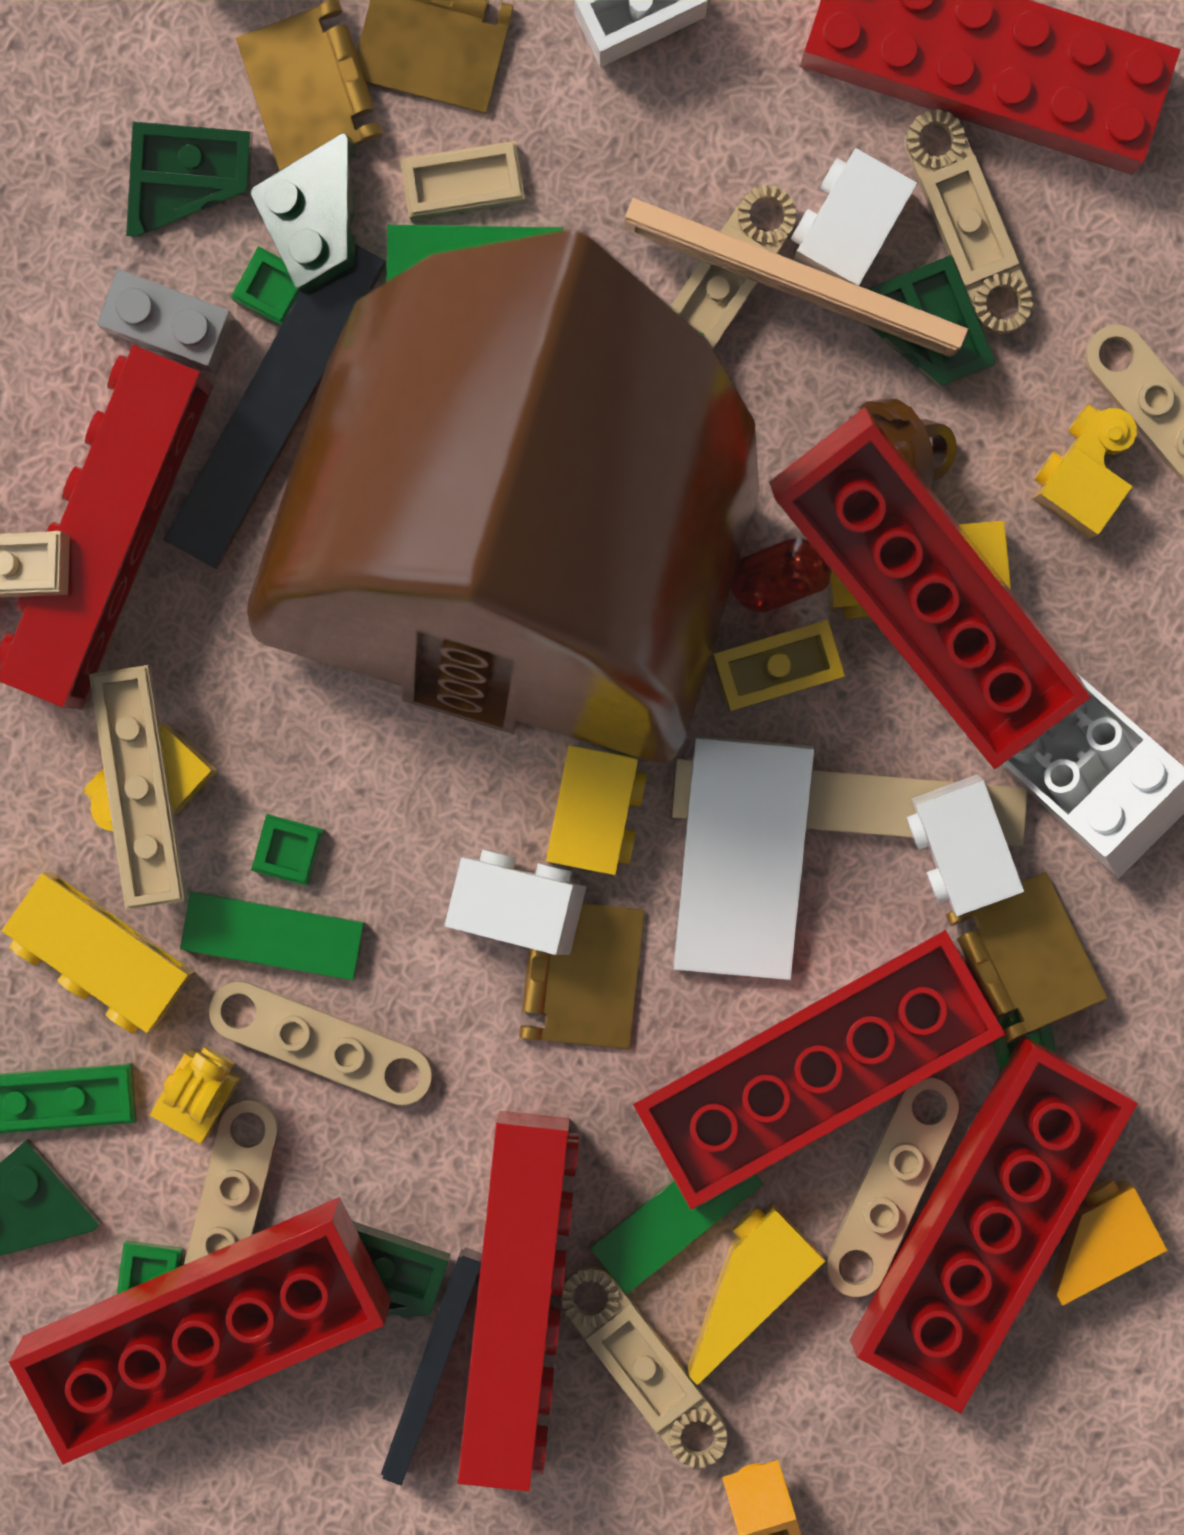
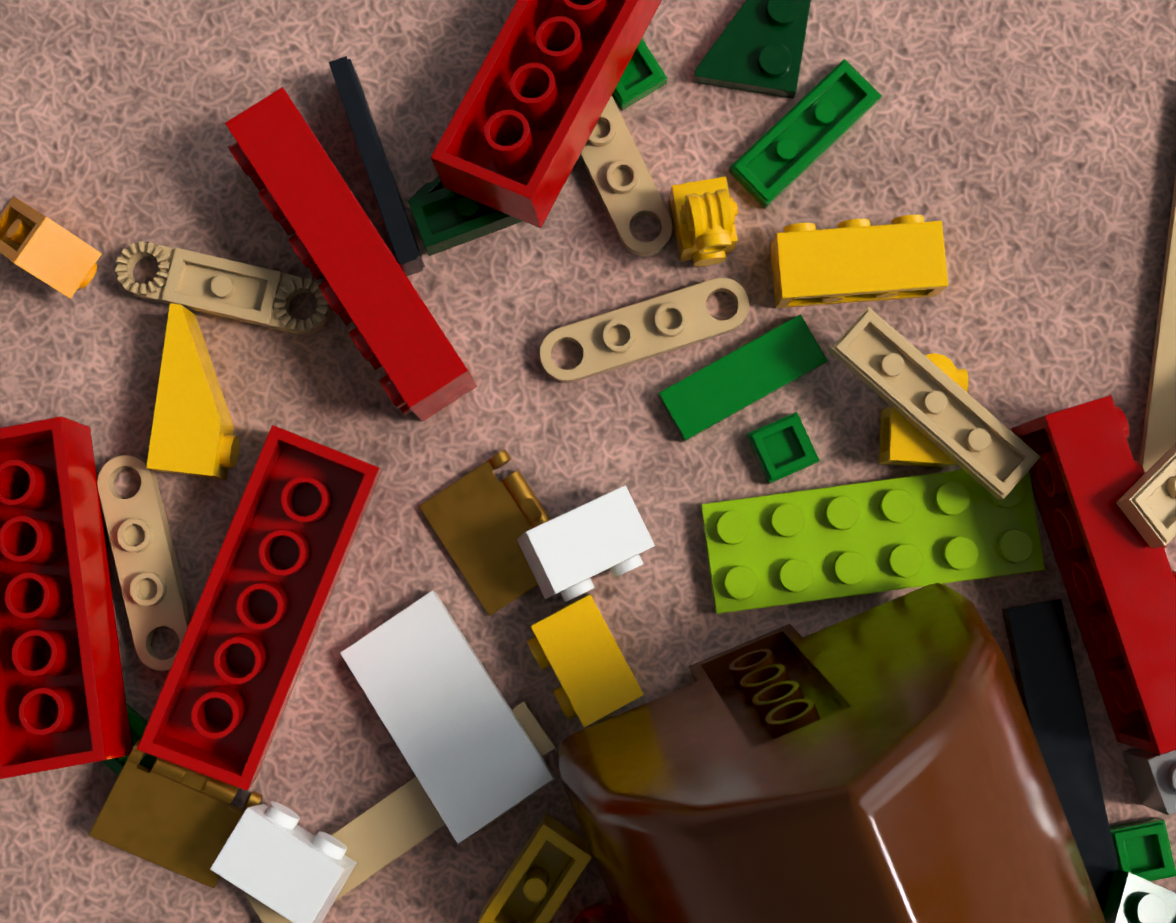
camera: 140 degrees right, 5 degrees down
(280, 717) = (866, 539): none -> lime plate
(662, 1230) = (291, 389): green tile -> none

